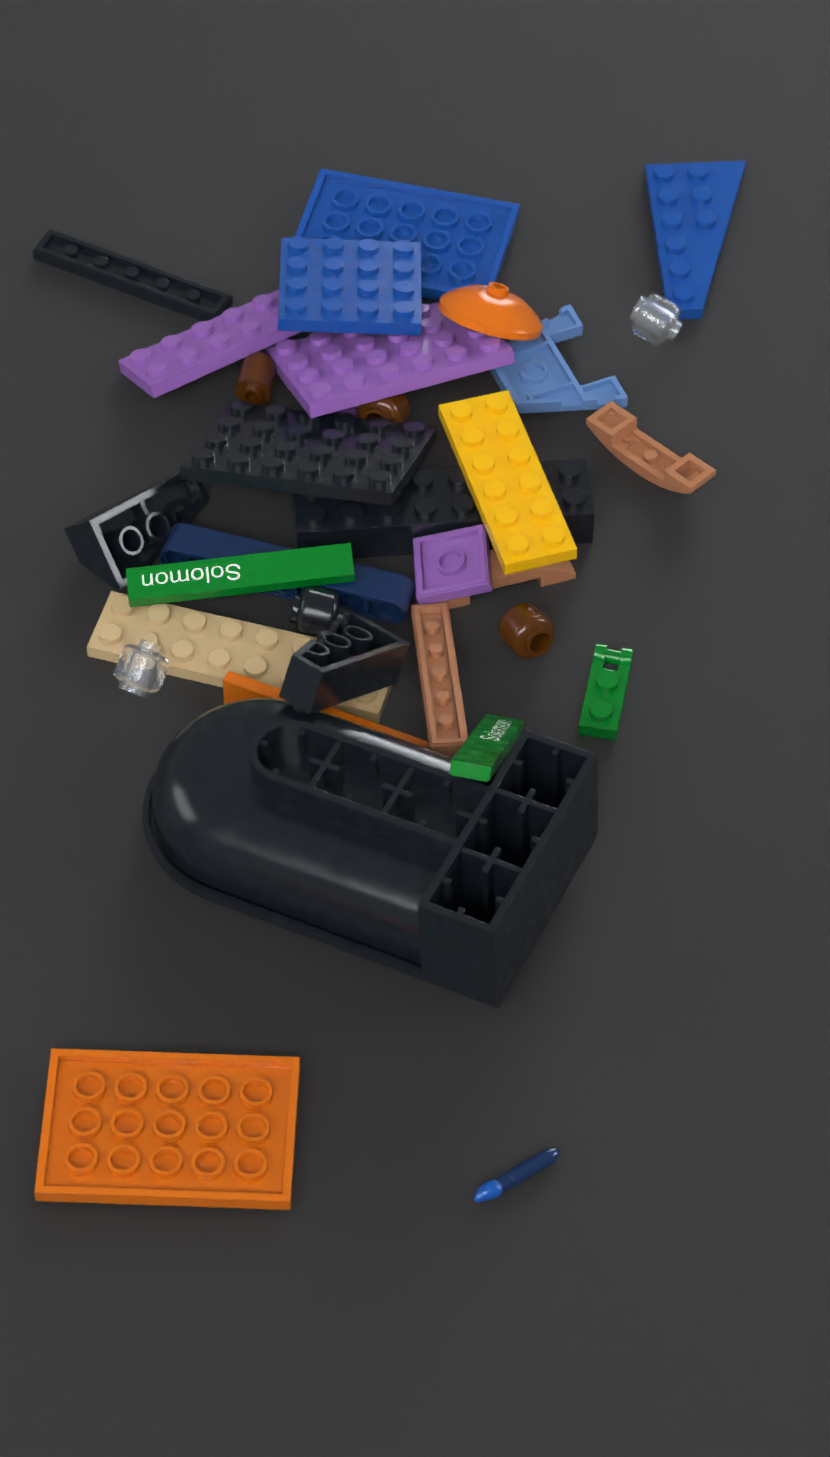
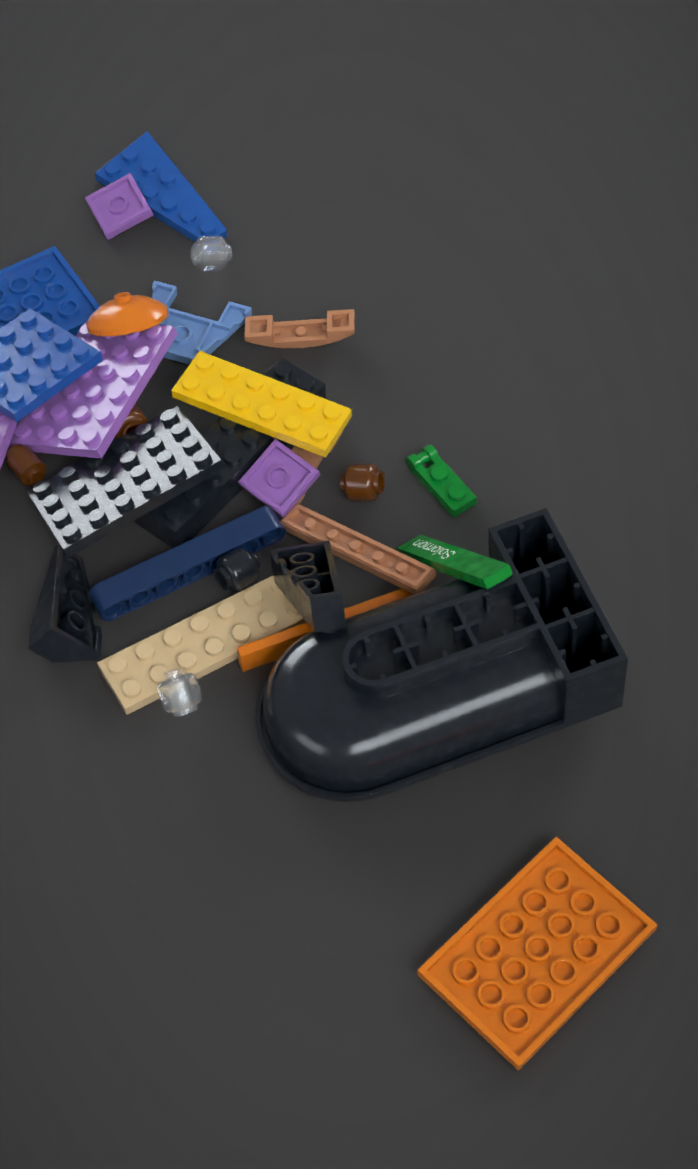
camera: 45 degrees left, 5 degrees up
(240, 574) = (171, 586): green tile -> none
(626, 212) = (119, 206): none -> medium lavender tile

